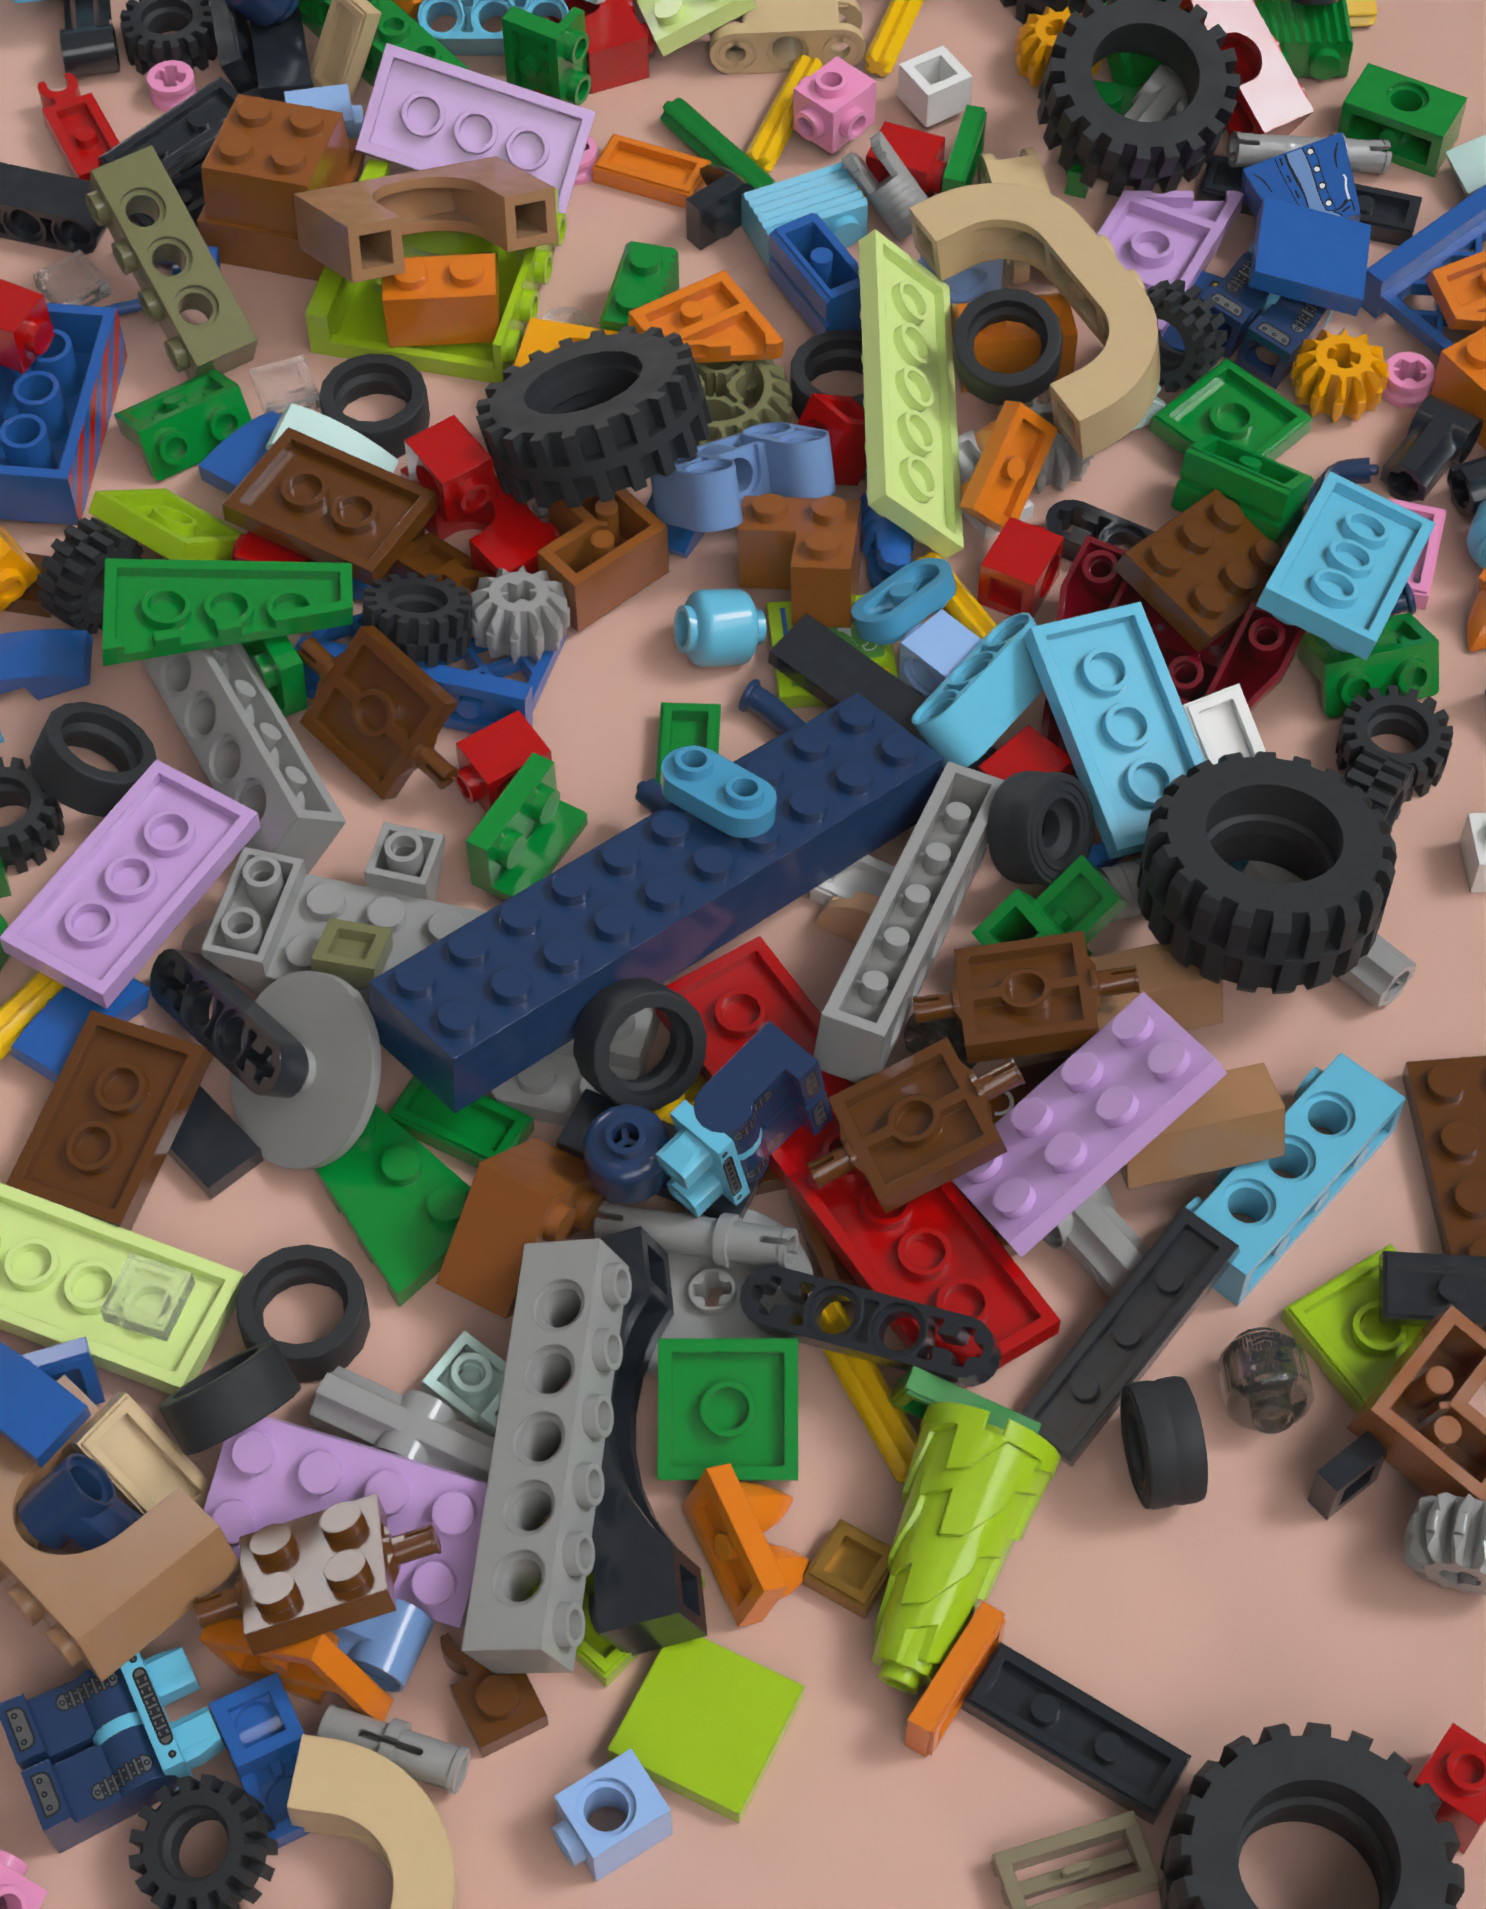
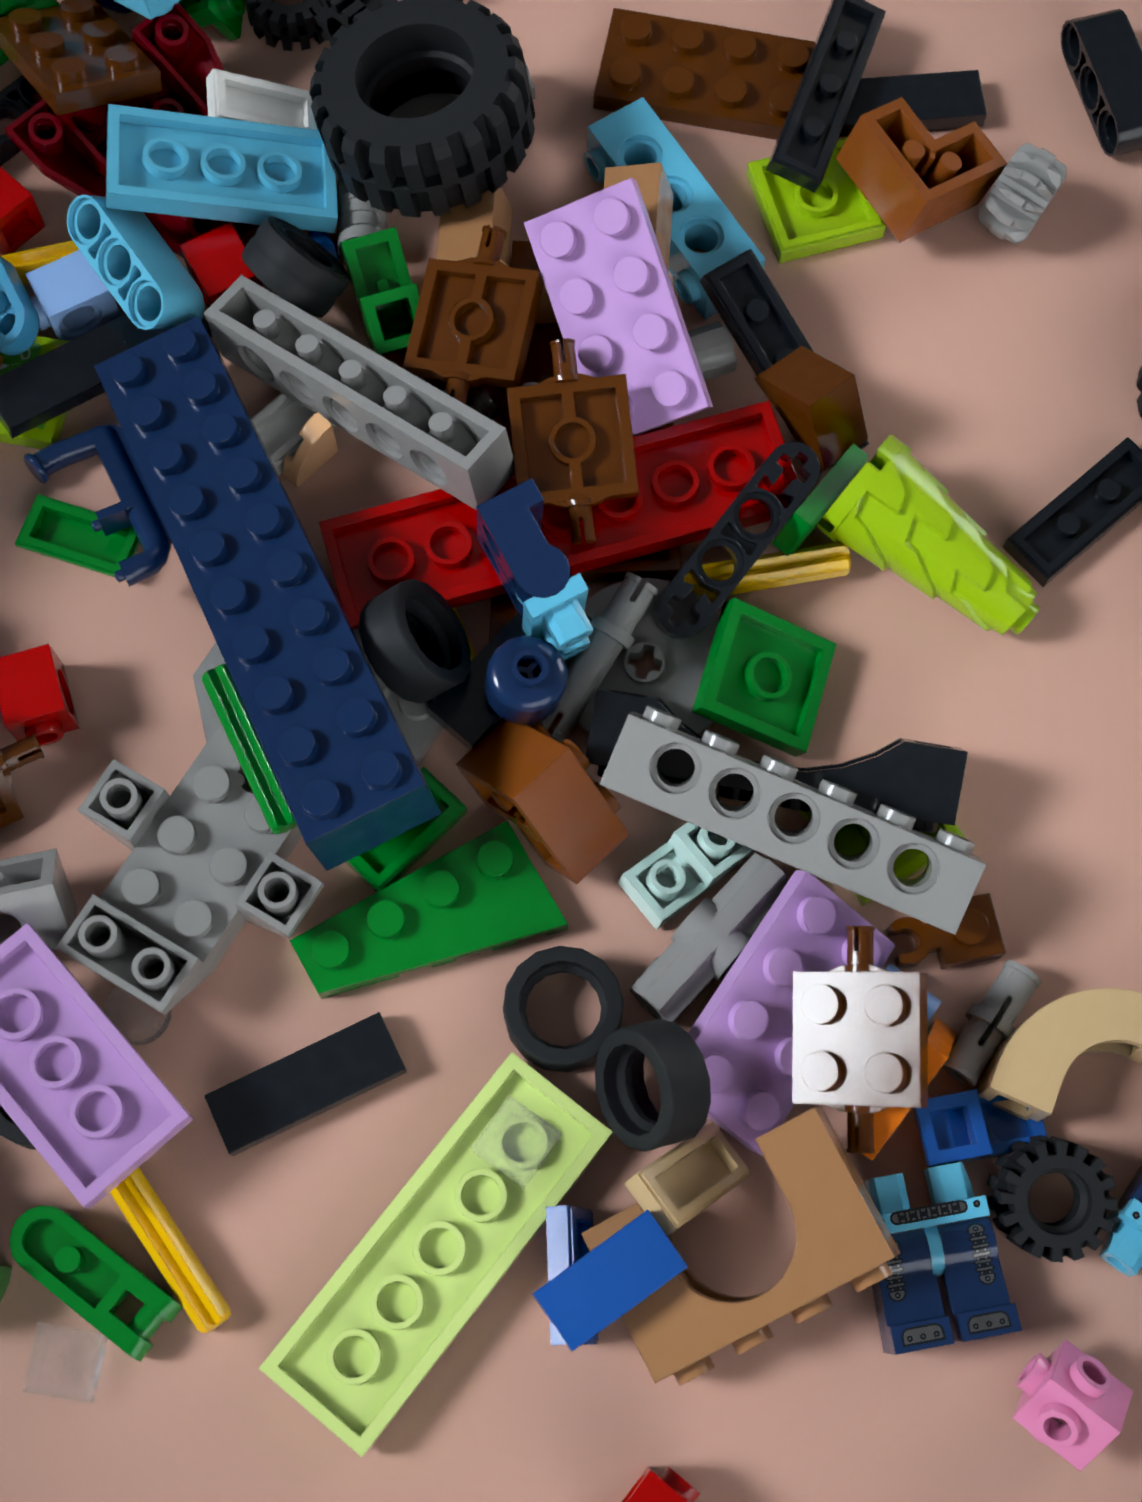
camera: 75 degrees left, 15 degrees up
(54, 1030) = (193, 1174): blue slope -> none
(75, 1506) = (733, 1234): dark blue piece -> none
(110, 1119) = (311, 1144): reddish brown plate -> none
(222, 1033) = (255, 1015): black beam -> none
(340, 1078) = (305, 907): light grey piece -> none
(352, 951) = (224, 870): olive tile -> none
(523, 832) = (127, 694): green bracket -> none
(619, 1785) = (1104, 841): light blue brick -> none
(708, 1724) = (1022, 774): lime tile -> none
(718, 791) = (187, 494): dark azure plate -> none
(730, 1528) = (887, 706): orange tile -> none
(850, 1569) = (913, 629): pearl gold tile -> none
(954, 1680) = (1057, 595): orange tile -> none
(1076, 1374) = (816, 403): none -> reddish brown slope
(1164, 1442) = (892, 362): black tyre -> none
(1267, 1378) = (845, 283): clear smoke head -> none
(1347, 1475) = (937, 256): black tile -> none

